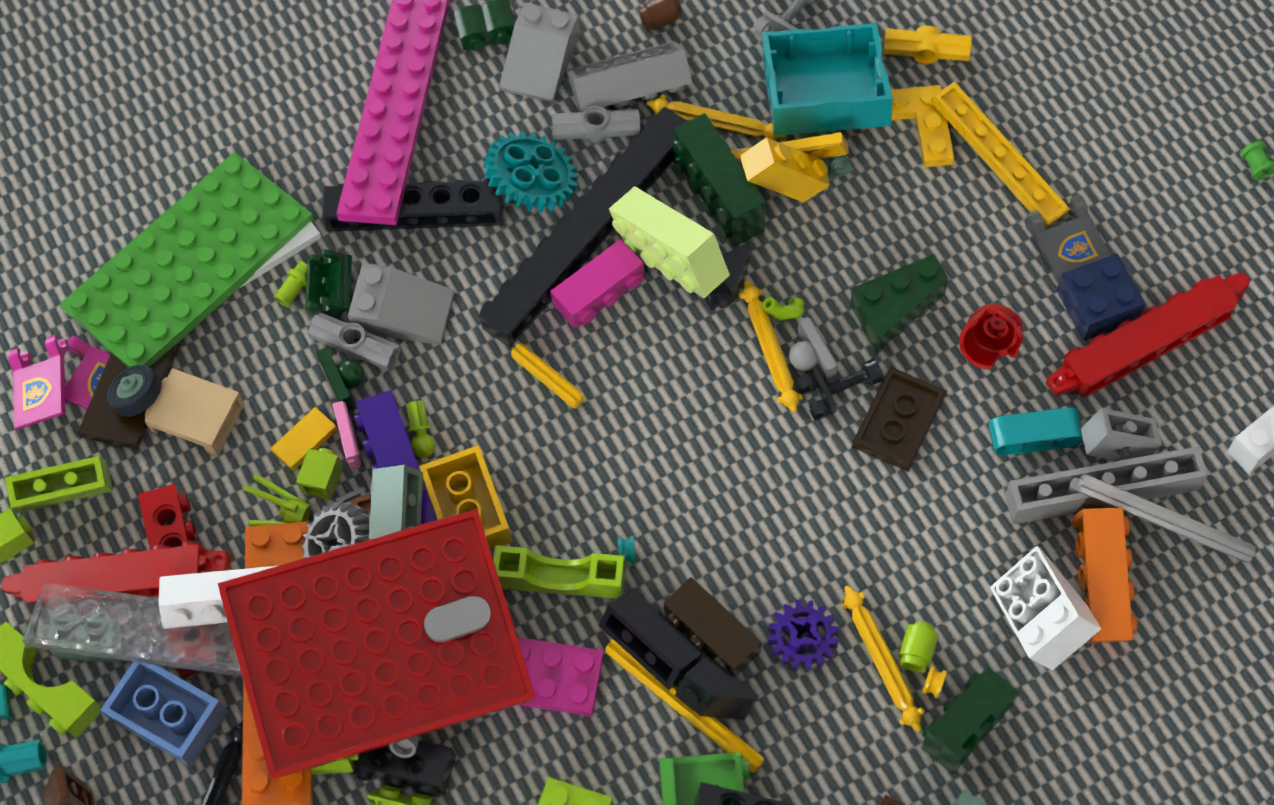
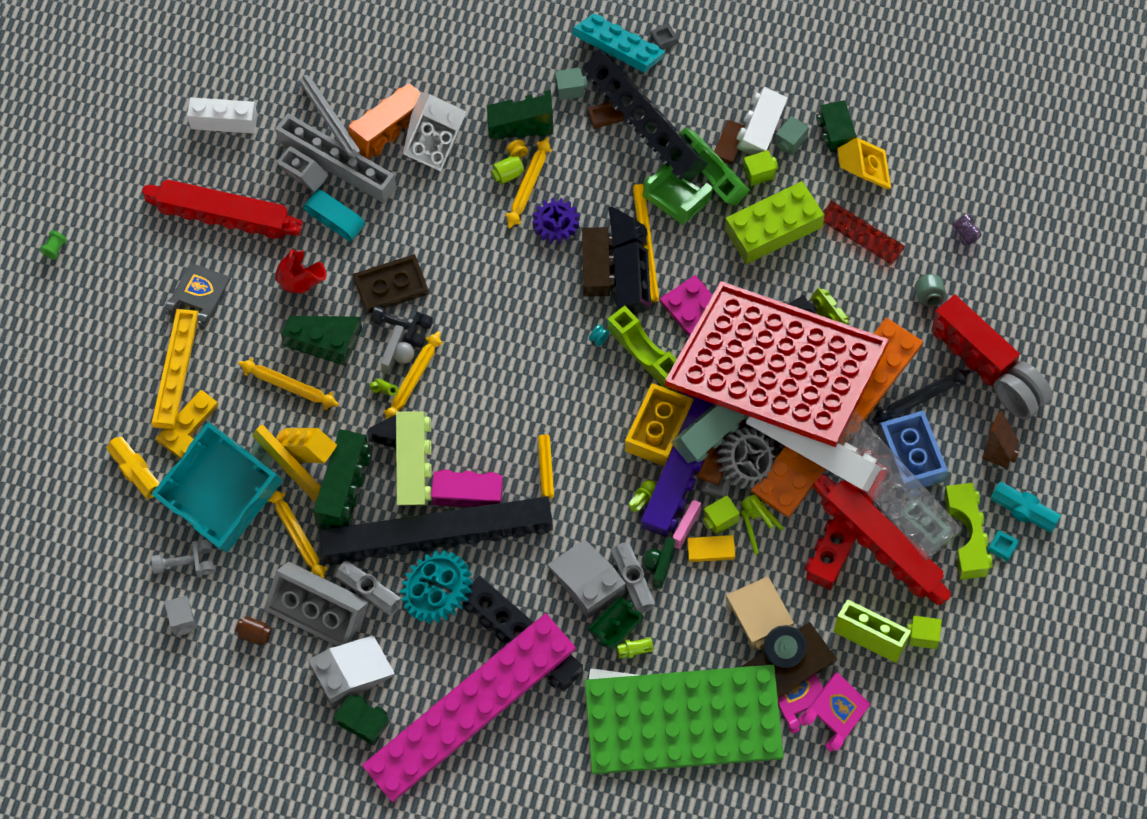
camera: 140 degrees left, 0 degrees up
(457, 619) = (726, 336): light grey tile -> none
(881, 235) = (288, 383): none -> yellow wheel
(1100, 296) = (222, 247): dark blue brick -> none

